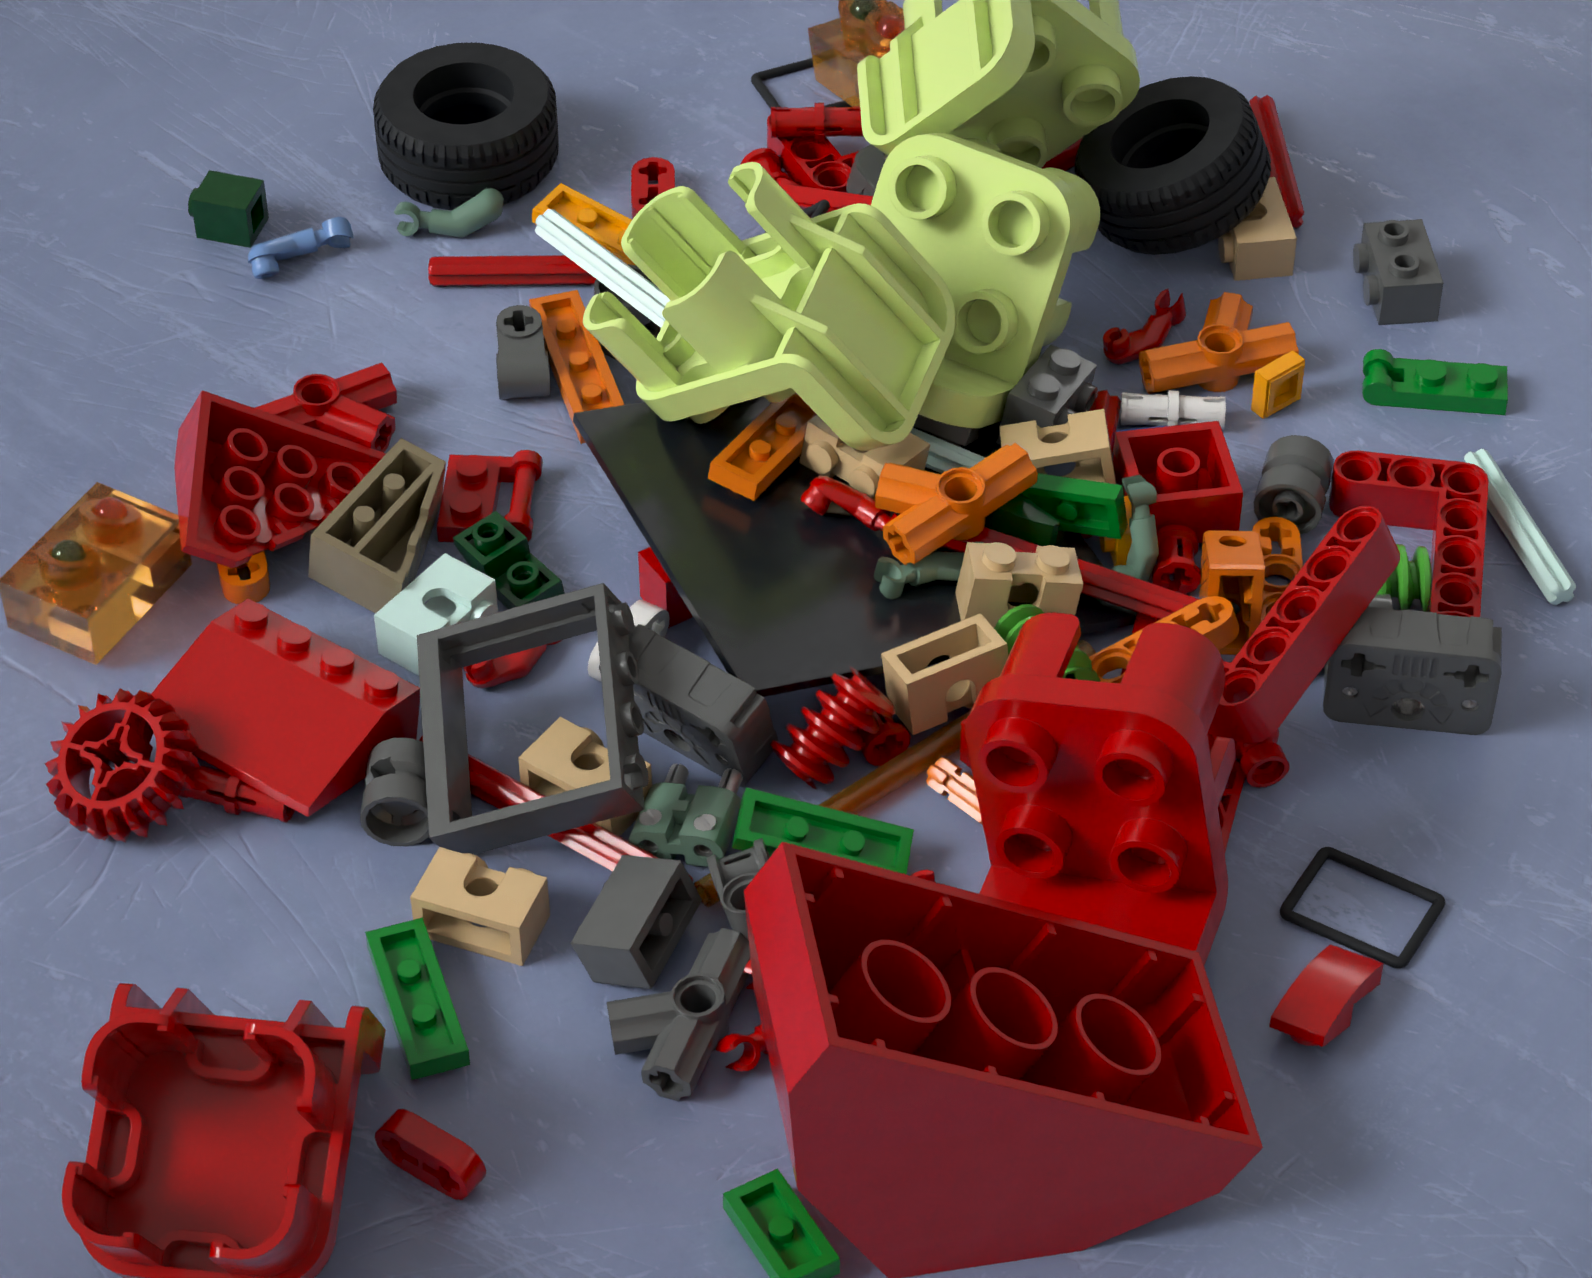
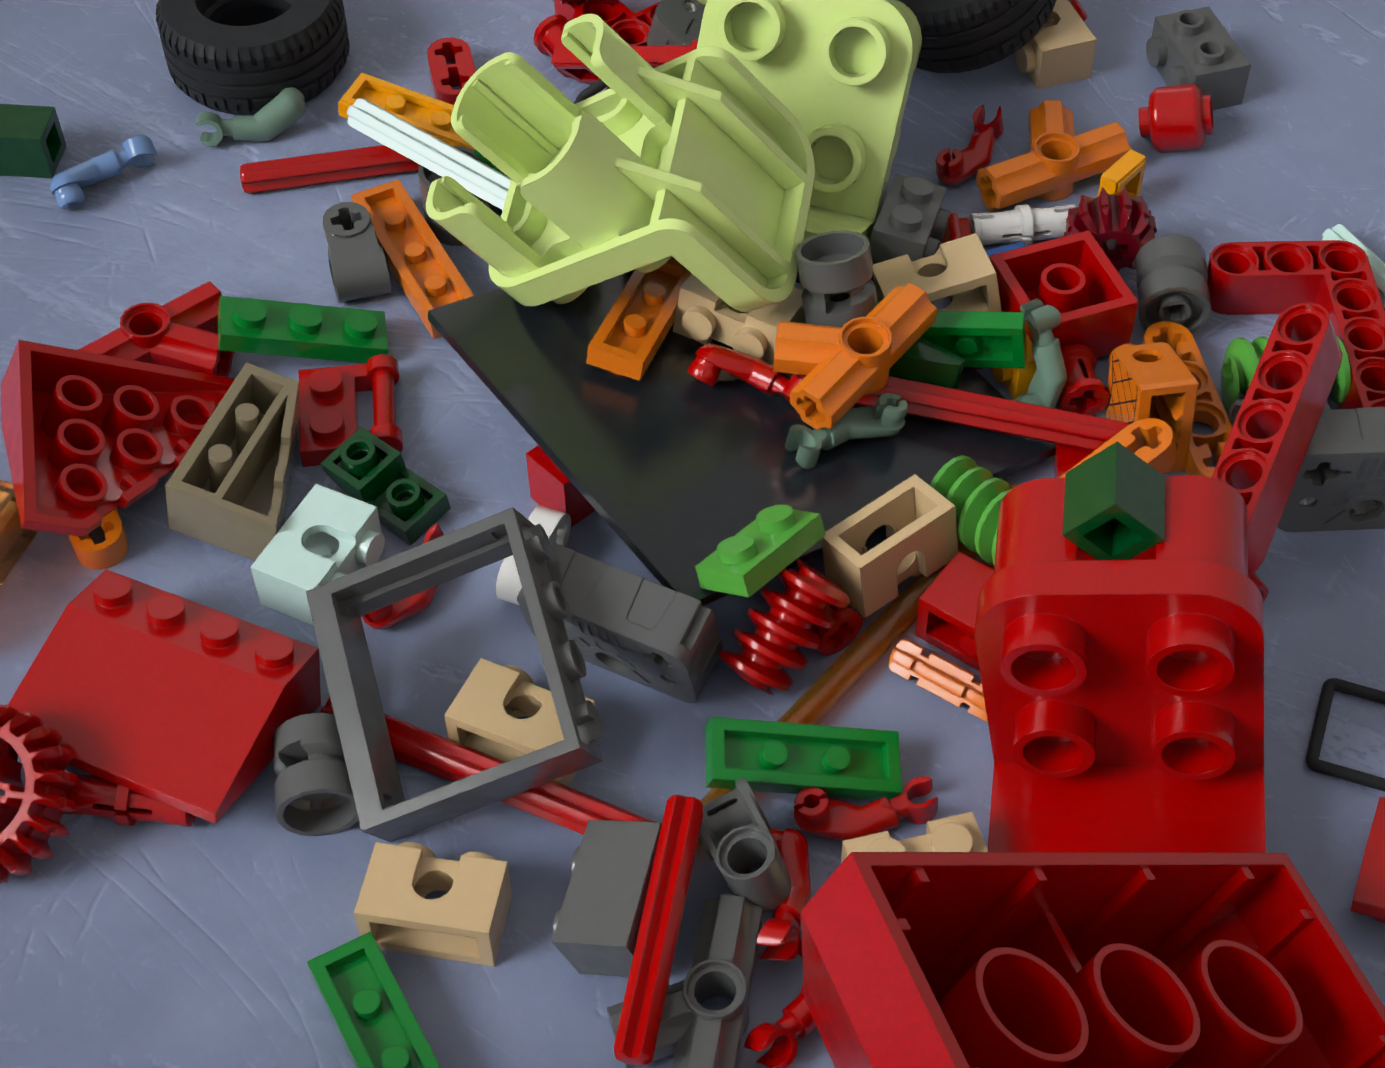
camera: 10 degrees left, 5 degrees up
(458, 418) = (300, 330): none -> green plate
(660, 941) = (658, 931): none -> red axle
(686, 822) = (647, 759): sand green piece -> none
(820, 656) = (760, 550): none -> bright green plate
(950, 429) = (836, 277): none -> dark grey wheel
(999, 575) = (919, 426): tan brick -> none
(1099, 637) = (1114, 505): none -> dark green brick
(1249, 422) = (1117, 224): none -> dark red gear
(1357, 325) = (1177, 118): none -> red head
(1434, 384) = (1265, 165): green plate -> none

